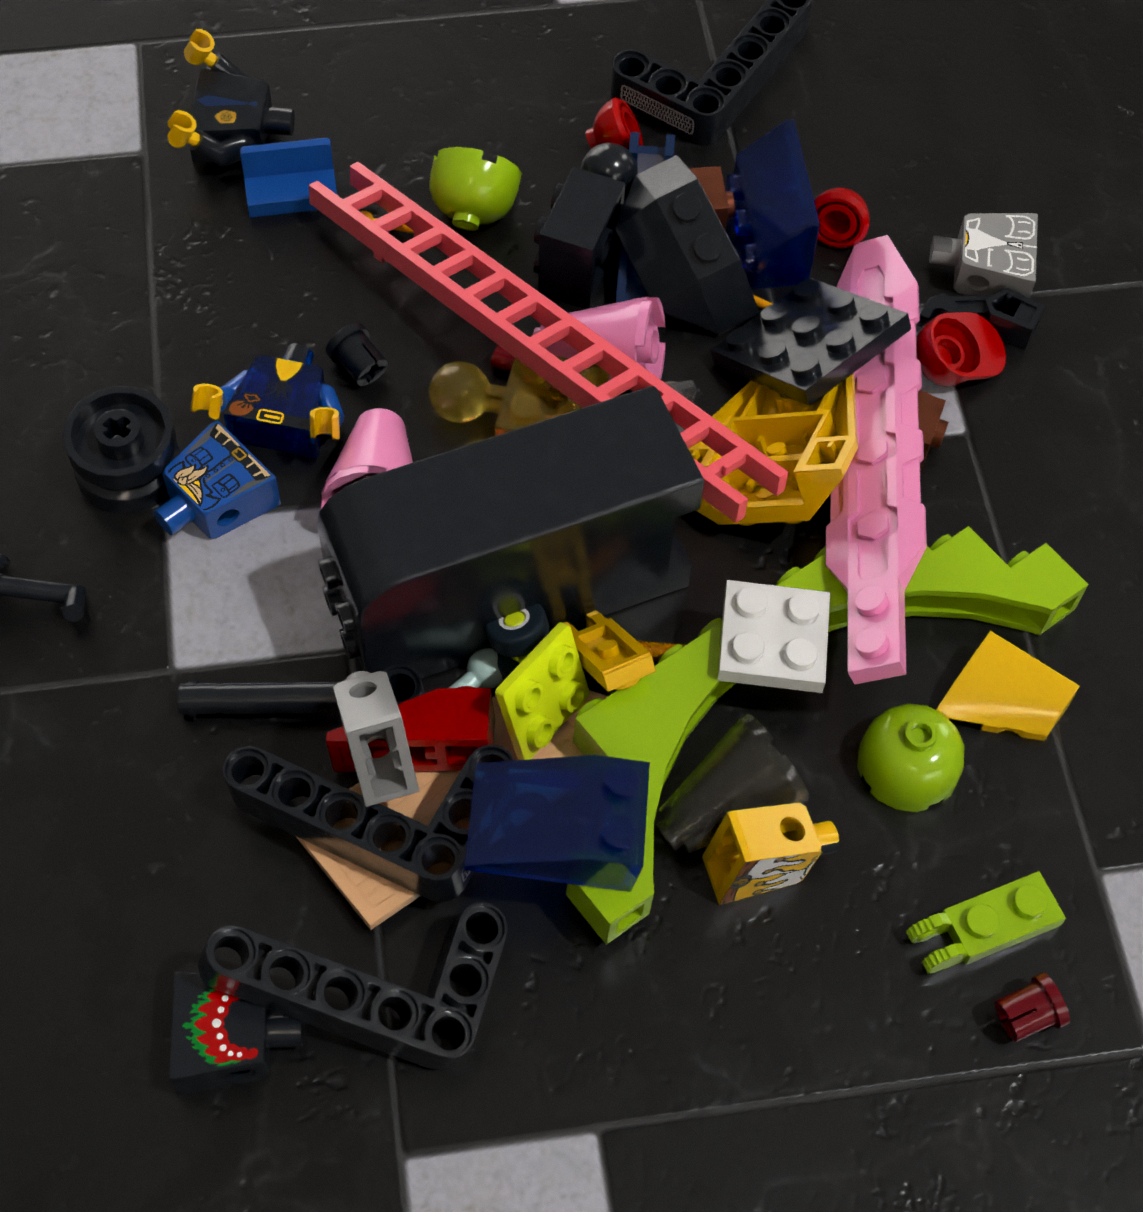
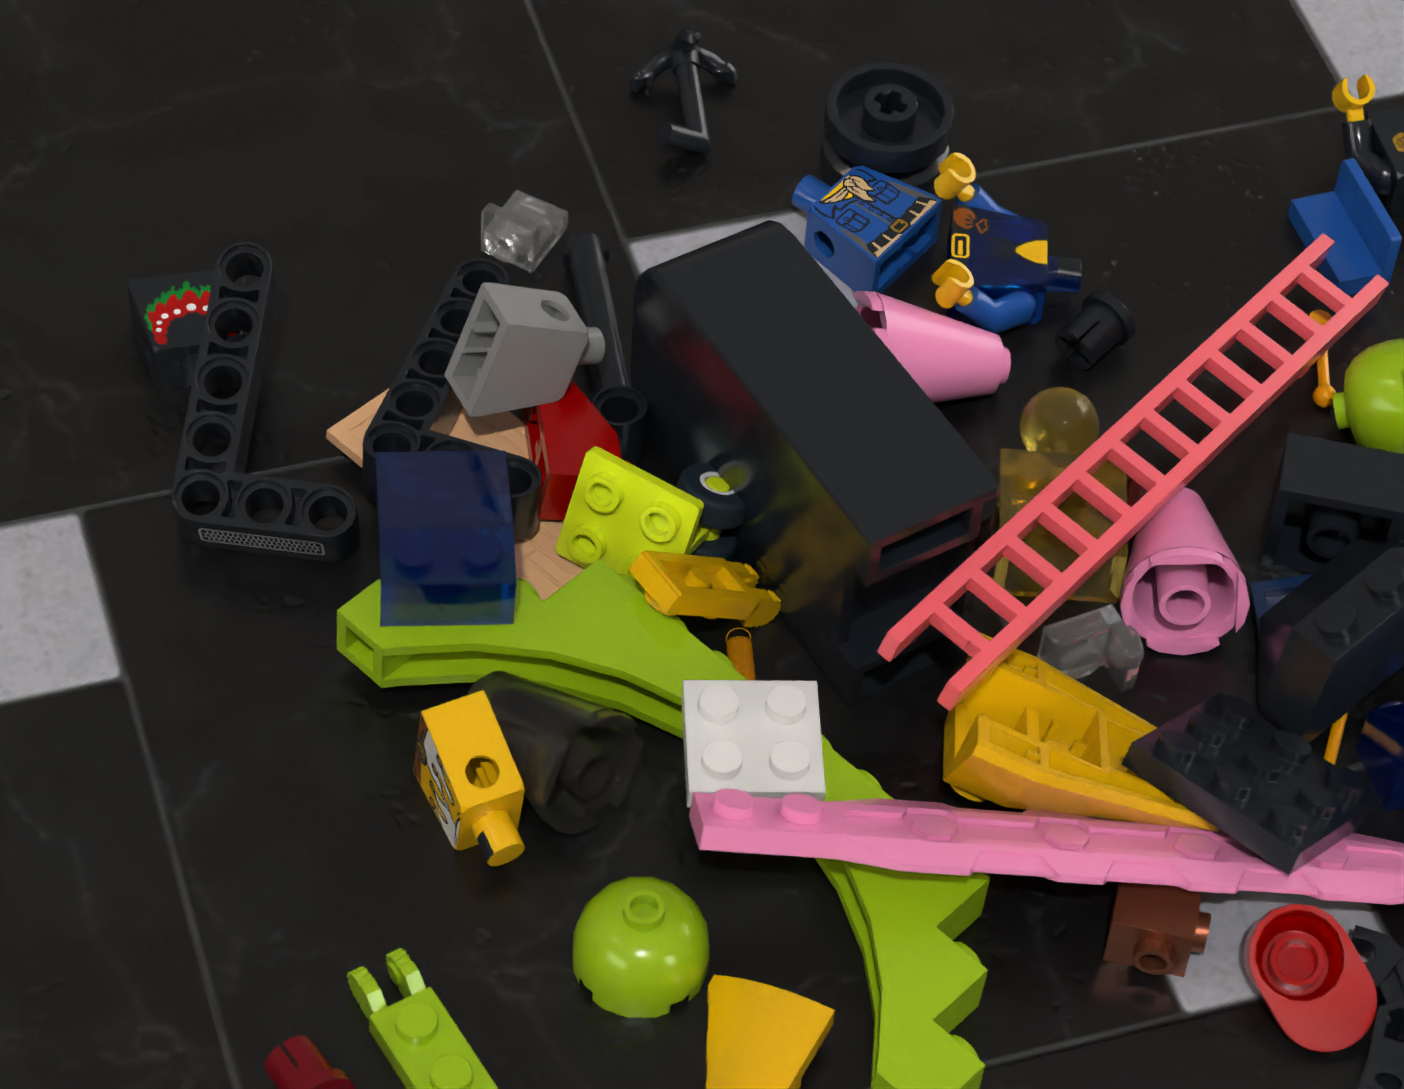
camera: 80 degrees right, 10 degrees down
(150, 744) = (522, 230): none -> clear bracket

